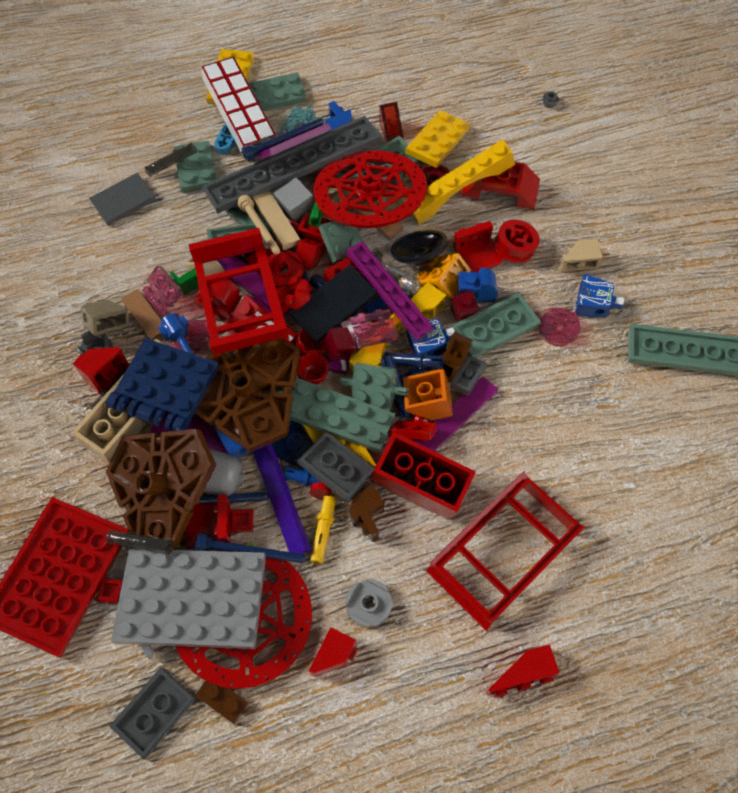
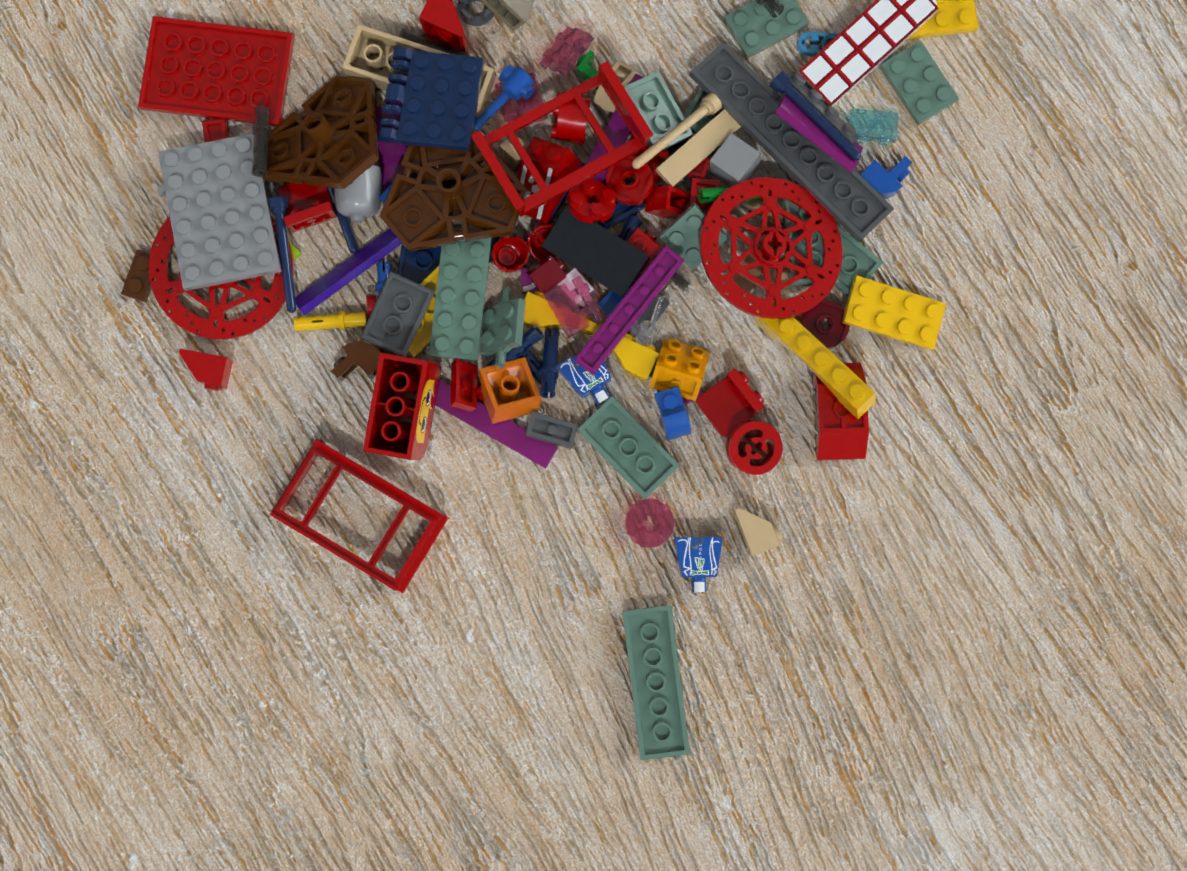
camera: 75 degrees right, 20 degrees up
(143, 314) = (536, 40): medium nougat tile -> none
(152, 713) = (114, 216): dark grey tile -> none
(242, 520) = (321, 235): red tile -> none
(356, 608) = (259, 377): light grey plate -> none
(390, 121) = (902, 245): clear red slope -> none
(419, 247) = (709, 330): black dish -> none
(455, 354) = (566, 408): reddish brown brick -> none
(464, 306) = (640, 405): dark red brick -> none
(531, 667) = (240, 563): red slope -> none
(550, 99) = (1006, 442): dark grey plate -> none

